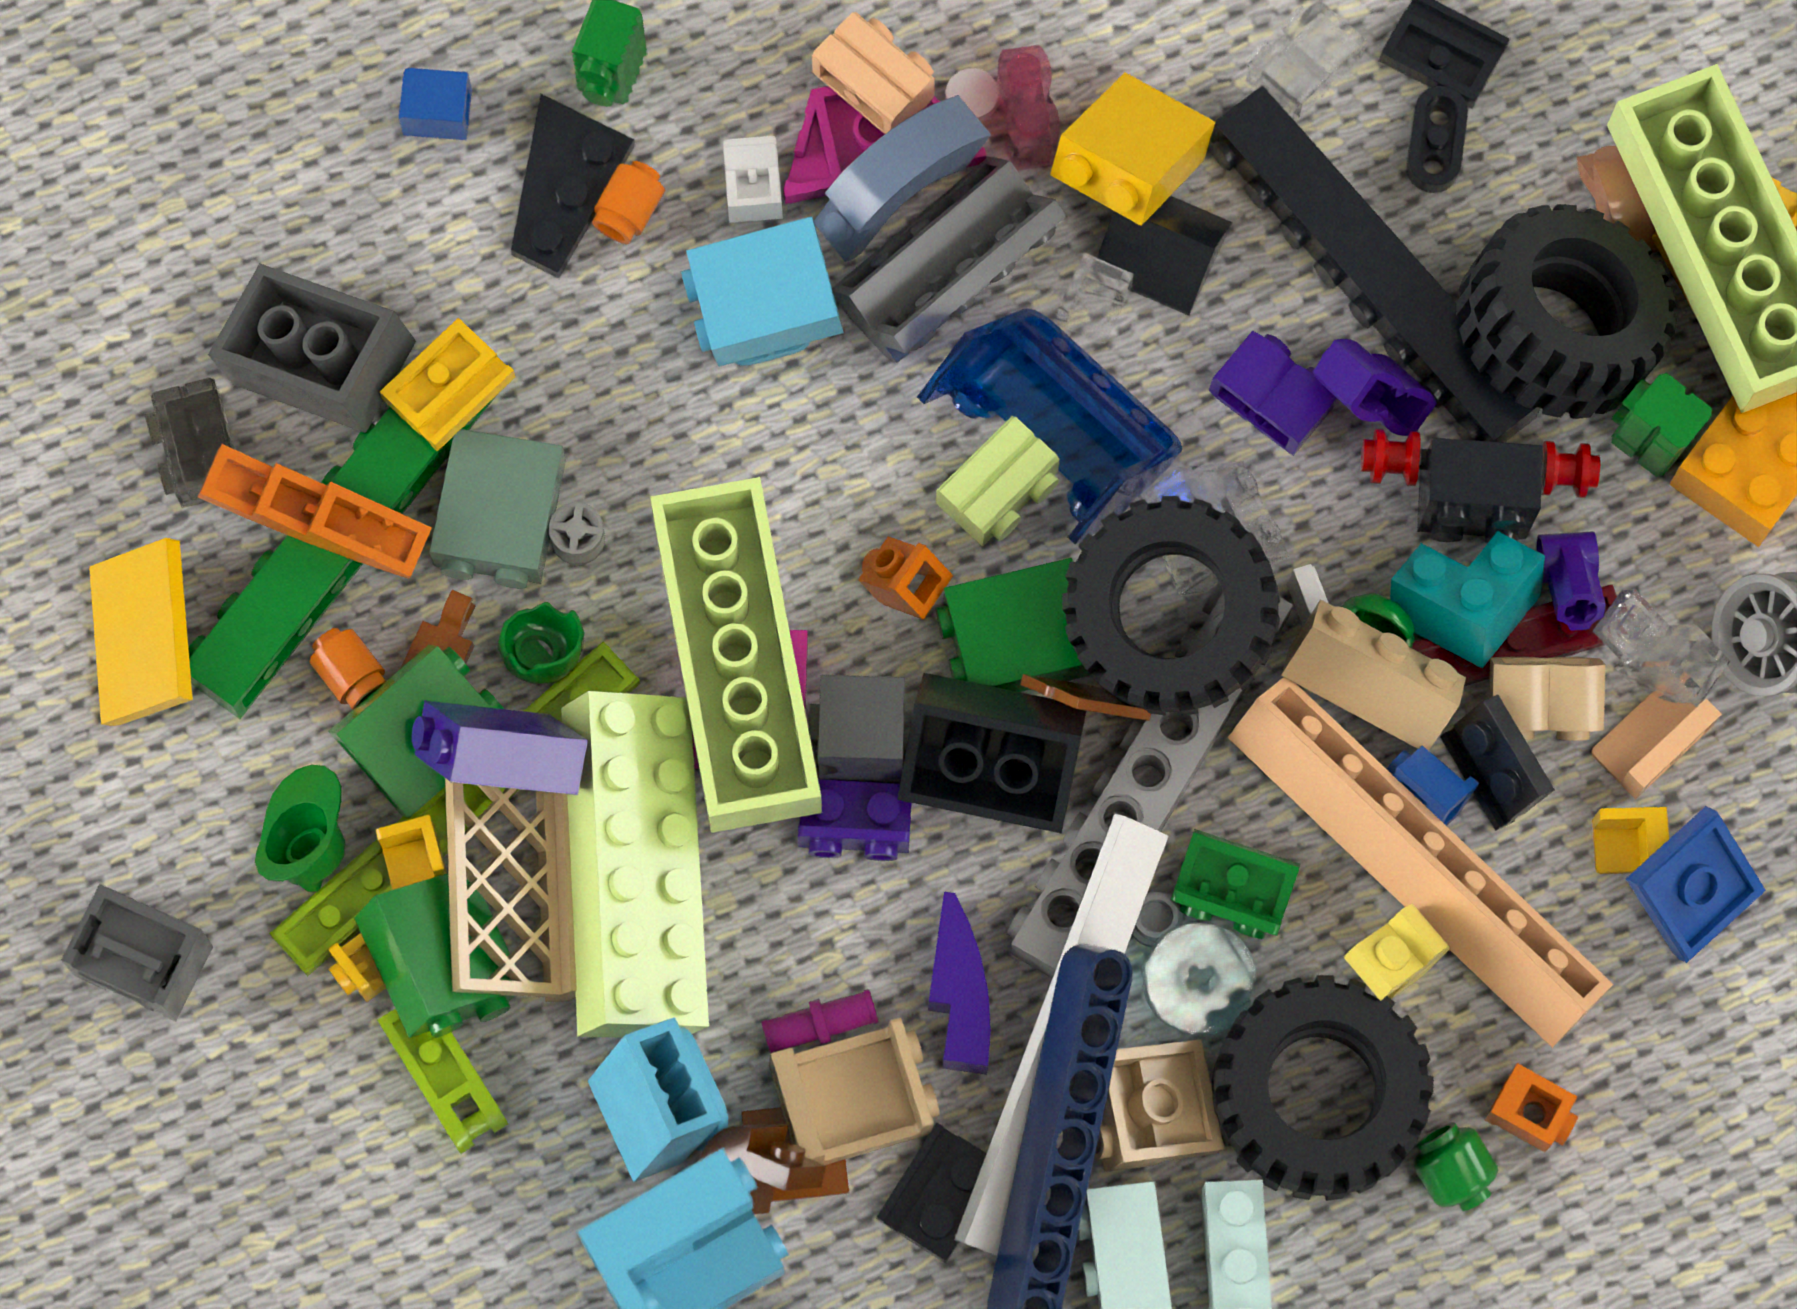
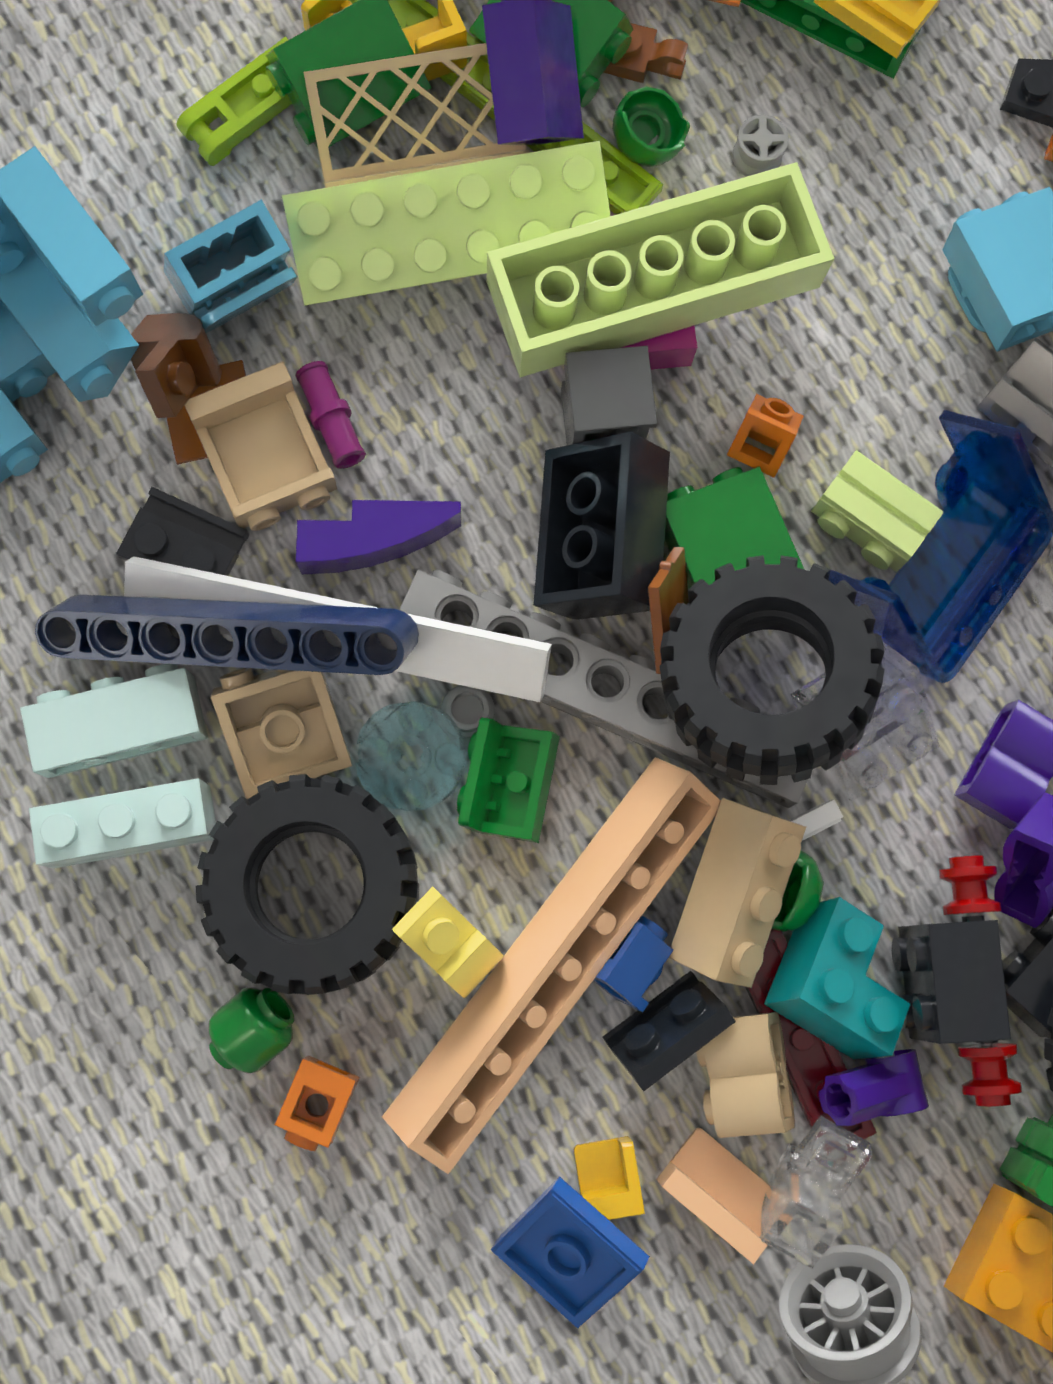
camera: 75 degrees right, 5 degrees up
(497, 508) = (773, 70): sand green brick -> none
(857, 818) = (528, 420): dark purple bracket -> none

